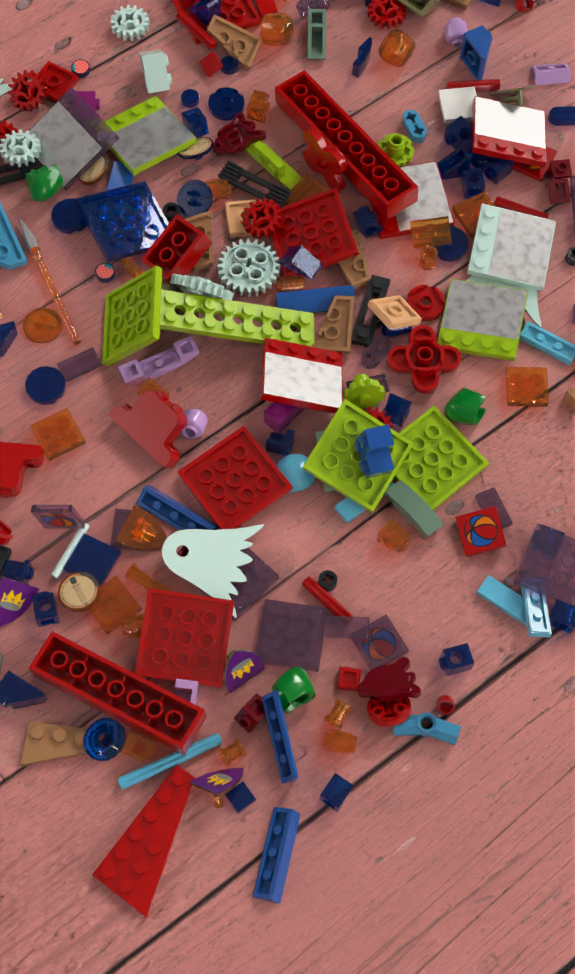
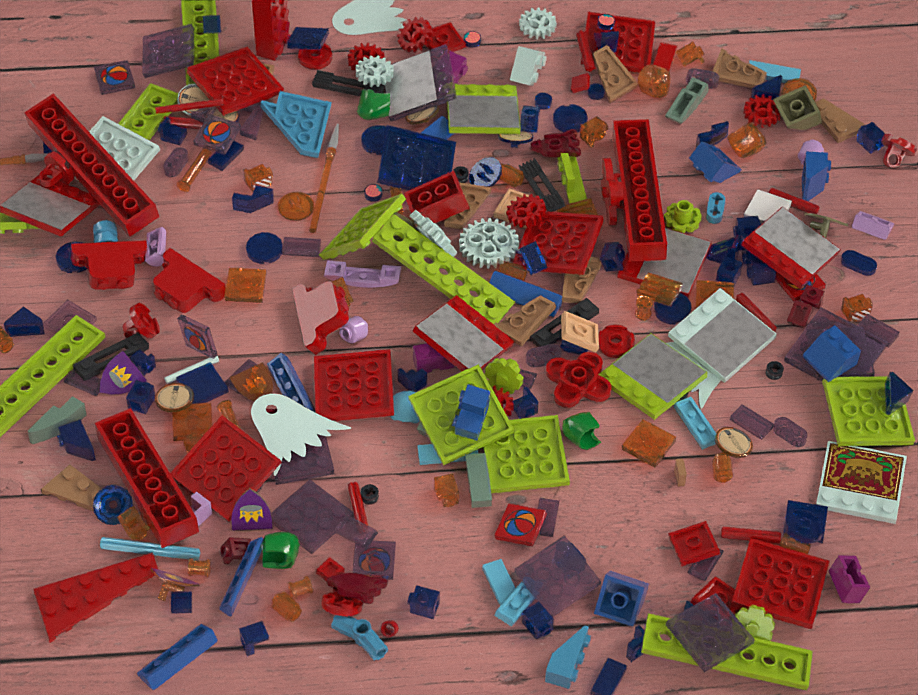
camera: 35 degrees right, 15 degrees down
(383, 84) = (713, 163): none -> blue slope

